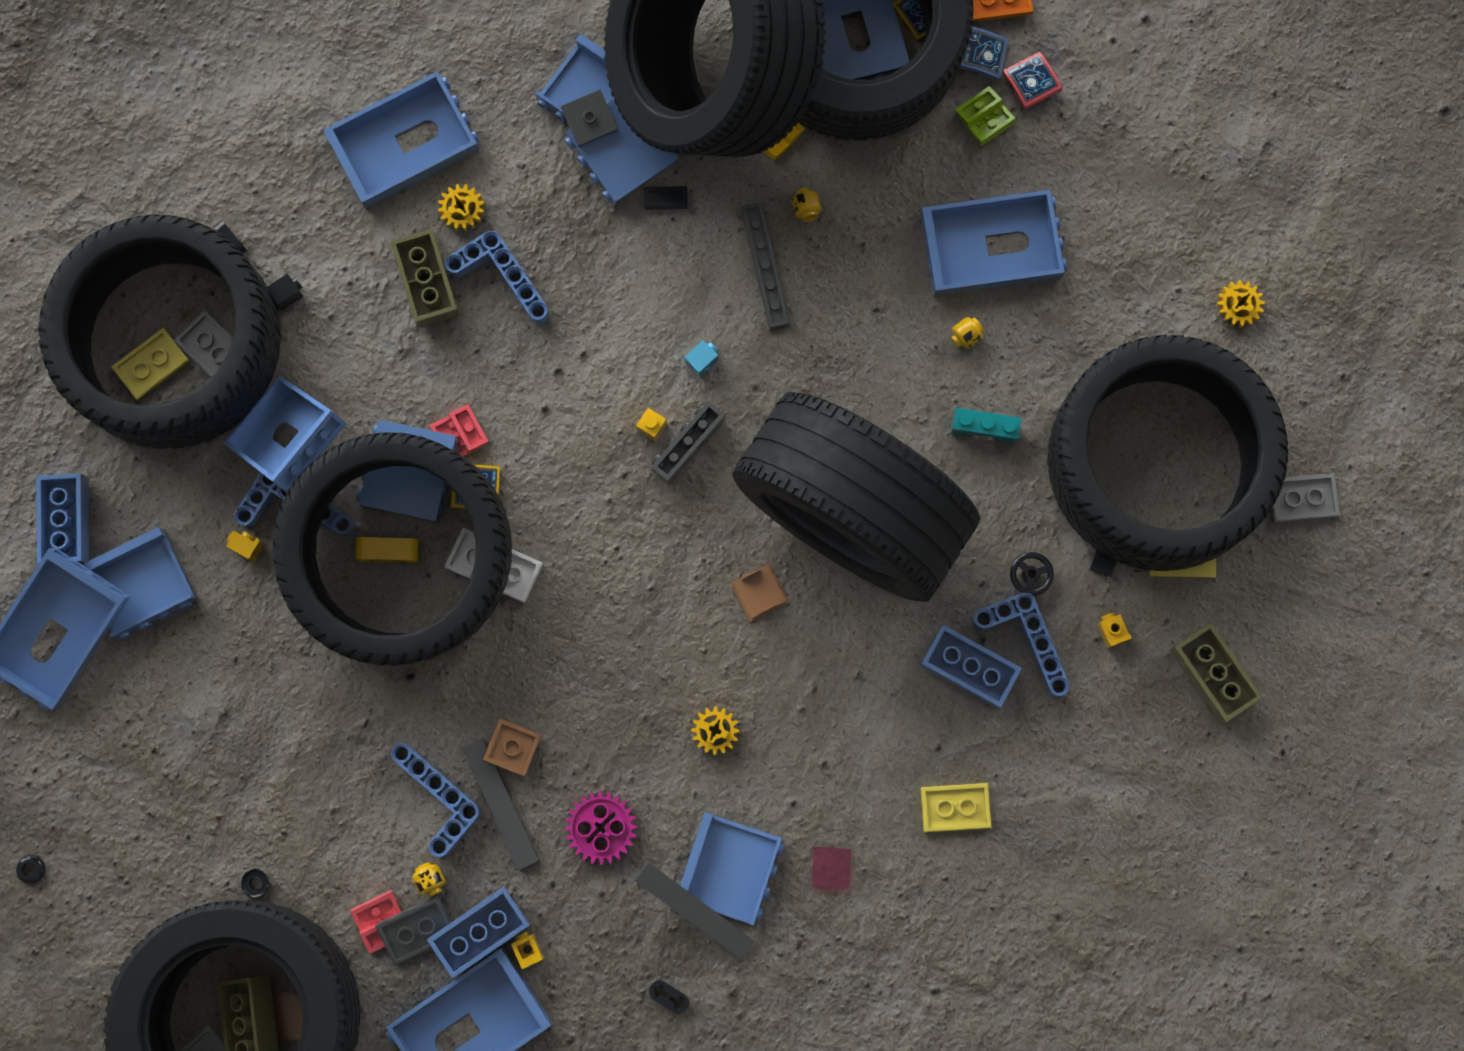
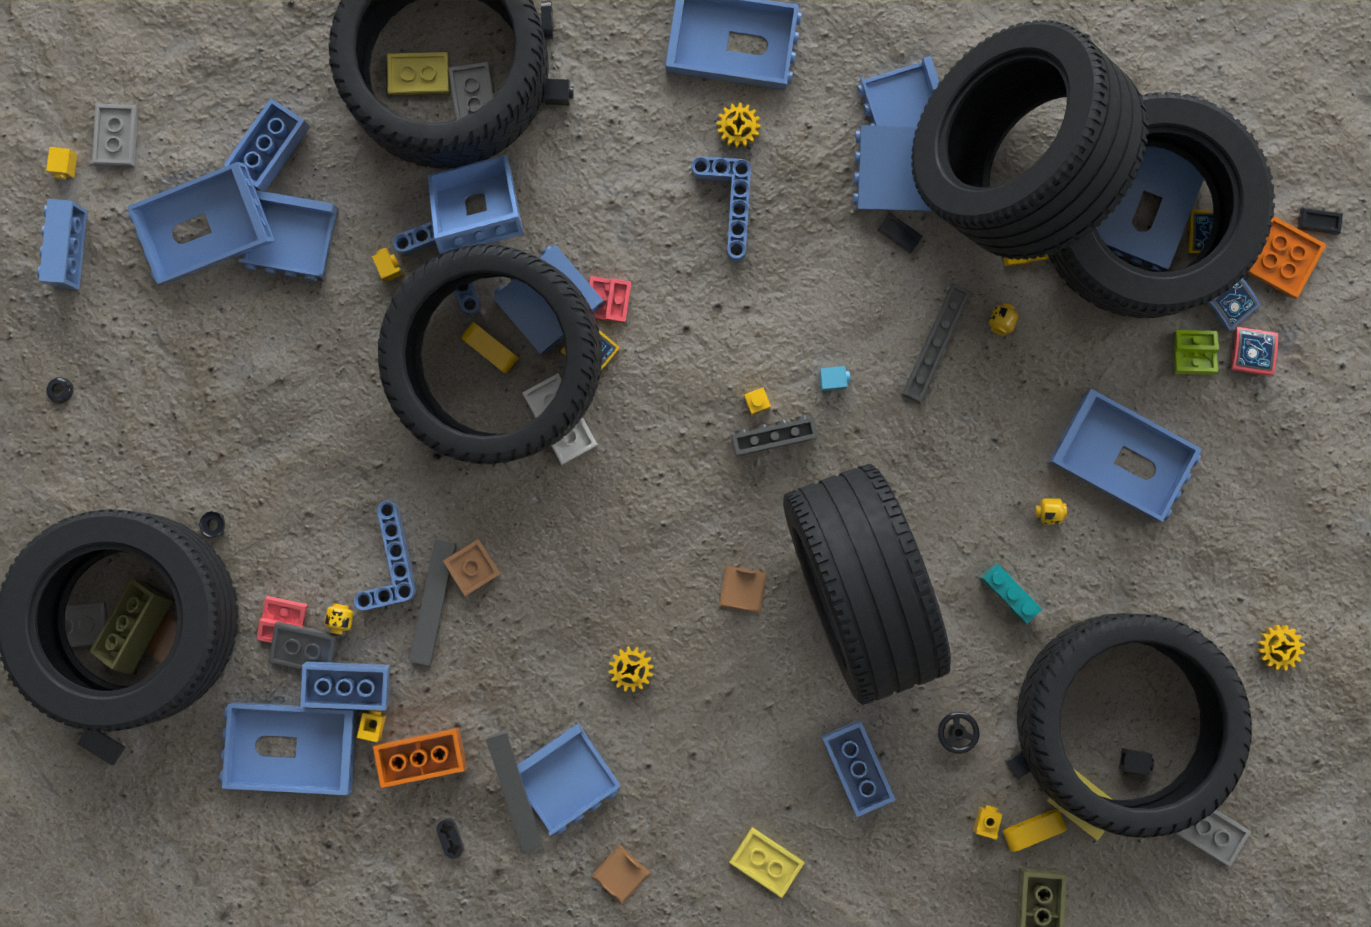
camera: 40 degrees right, 5 degrees up
(412, 273) = (664, 149): olive brick -> none
(574, 944) = (414, 770): none -> orange brick
(586, 813) = (496, 695): dark pink gear -> none
(589, 118) = (887, 128): dark grey plate -> none
(831, 867) = (640, 835): clear pink piece -> none
(839, 914) = (620, 874): none -> medium nougat piece
(1031, 637) = (921, 779): medium blue beam -> none
(1157, 607) = (1034, 830): none -> yellow beam
(1196, 486) = (1136, 761): none -> black brick

